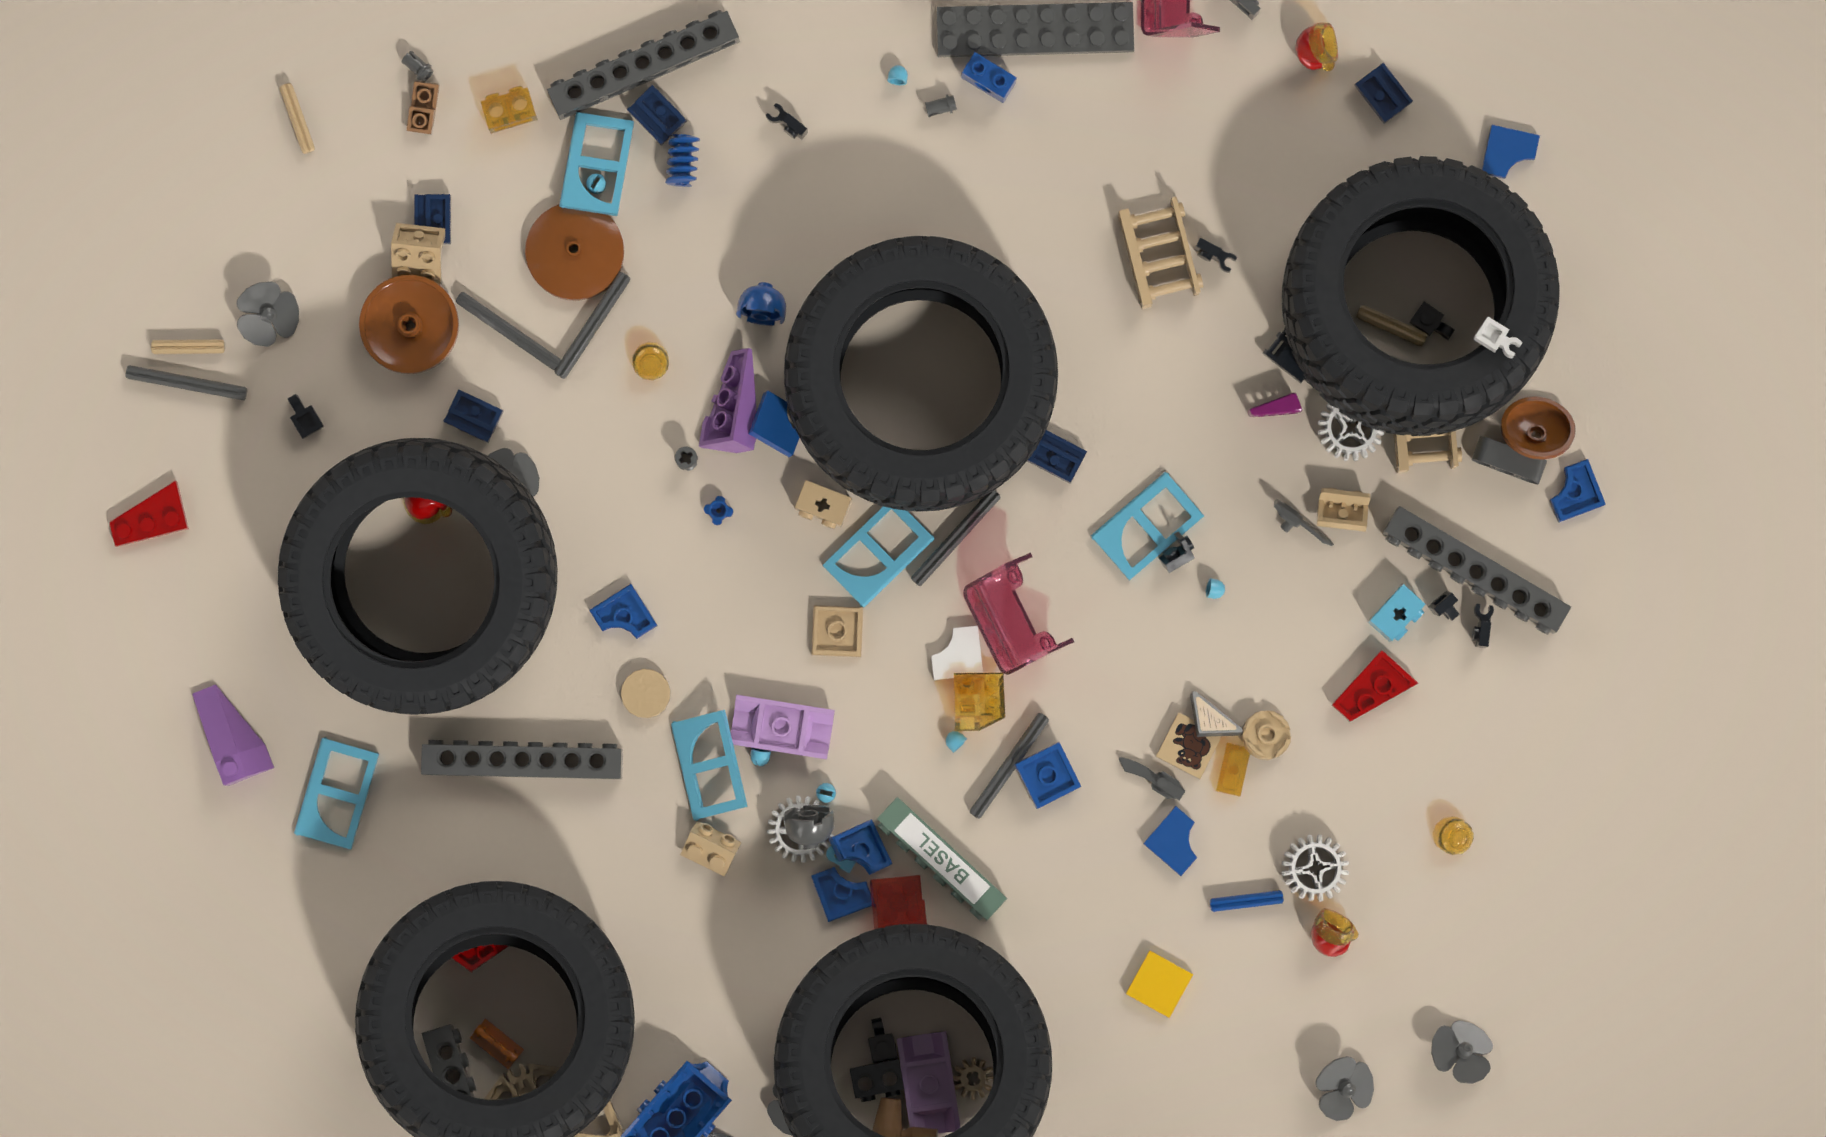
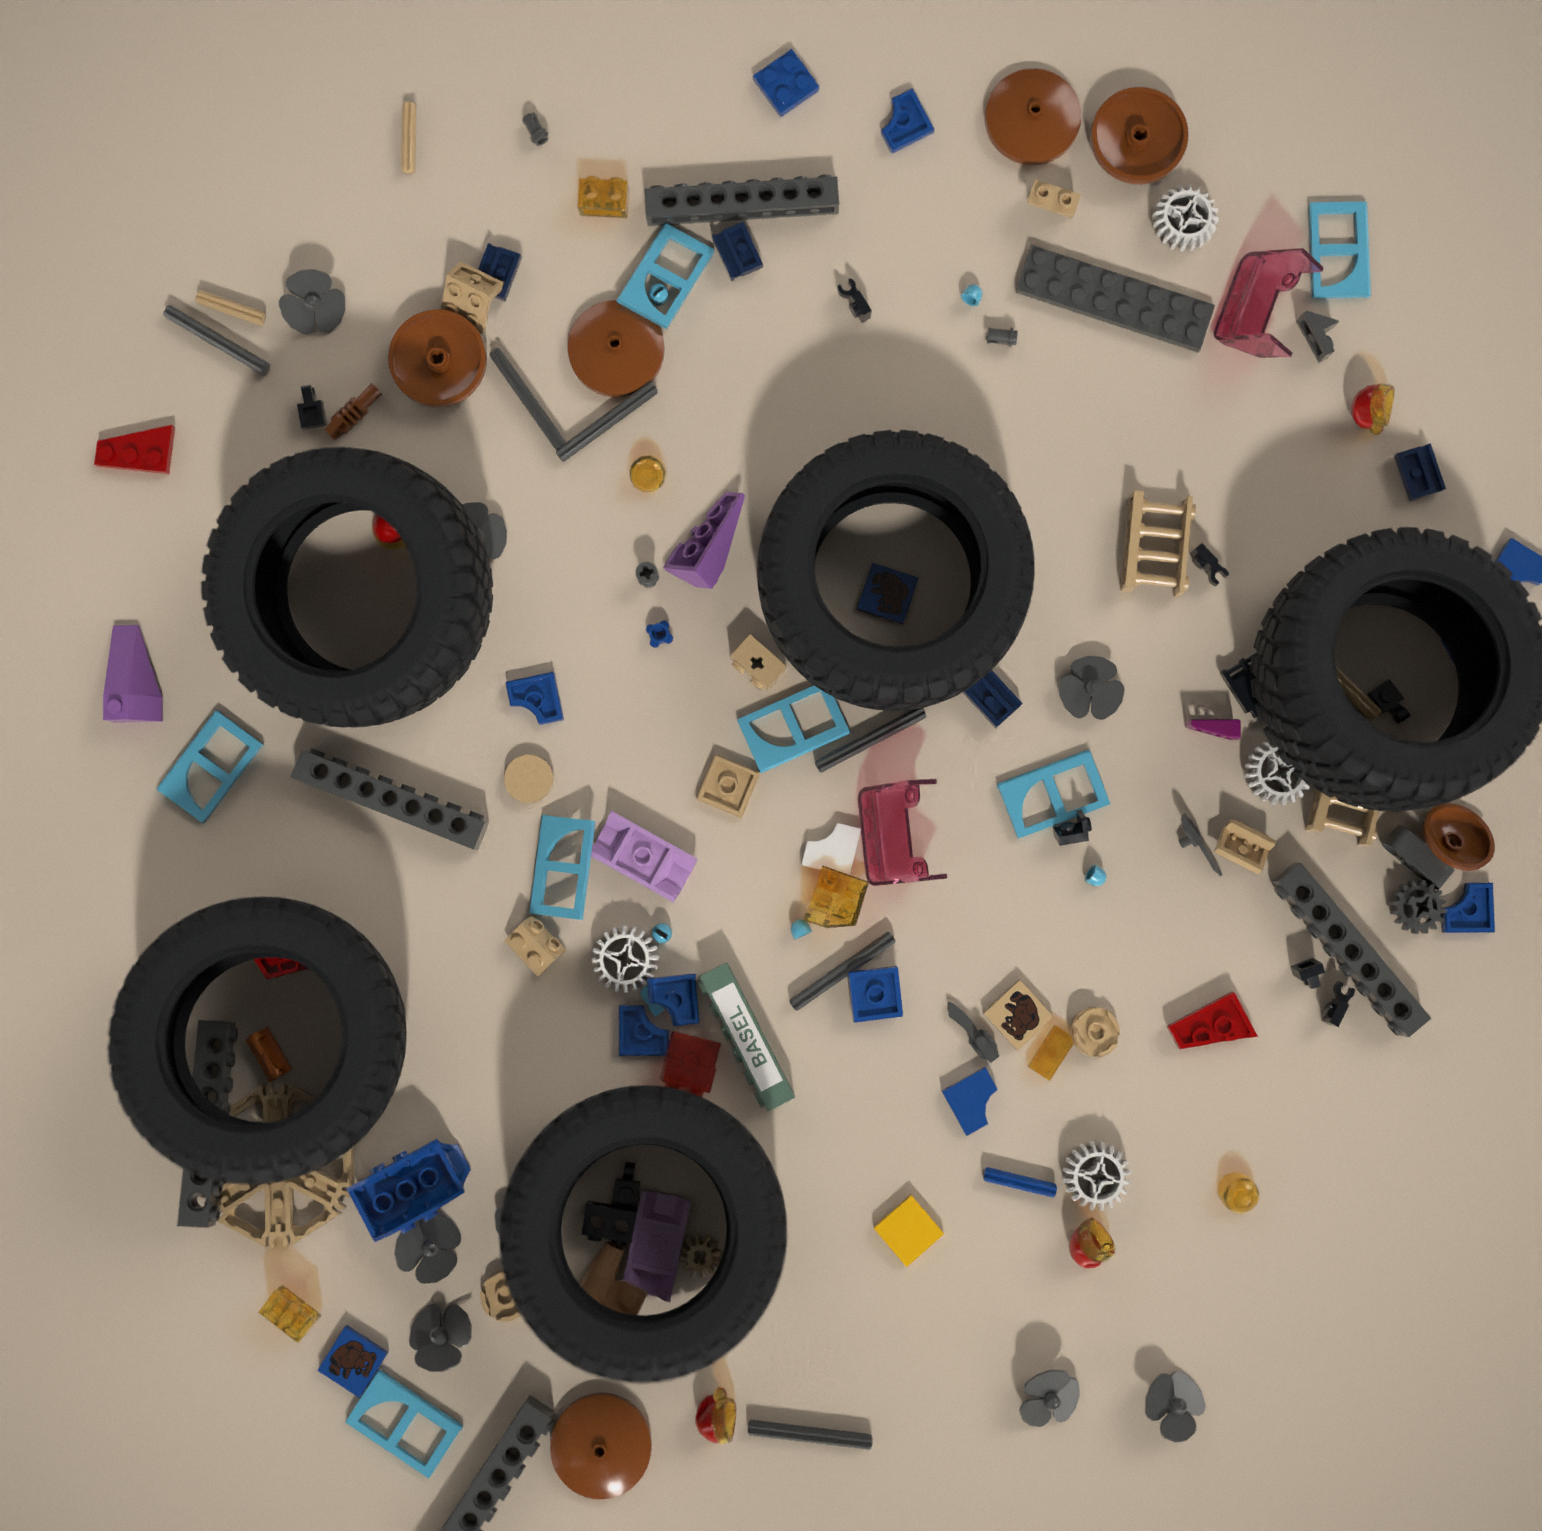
camera: 25 degrees right, 0 degrees up
(345, 404) = (352, 412): none -> dark orange hinge
(423, 107) = (527, 169): medium nougat slope -> none
(473, 416) = (466, 464): dark blue plate -> none
(681, 160) = (743, 299): blue piece -> none
(759, 756) = (612, 877): medium azure hinge -> none
(762, 305) = (769, 458): blue cylinder -> none
(773, 426) = (738, 573): blue tile -> none
(809, 826) = (632, 960): dark grey cylinder -> none
(921, 392) = (887, 593): none -> tile
(989, 77) = (1056, 325): blue brick -> none
(1140, 409) = (1087, 685): none -> dark grey piece
(1210, 720) = (1047, 998): tile -> none
(1383, 618) = (1246, 963): medium azure brick -> none
(1494, 335) = (1473, 732): white plate -> none
(1536, 509) = (1425, 899): none -> dark grey gear

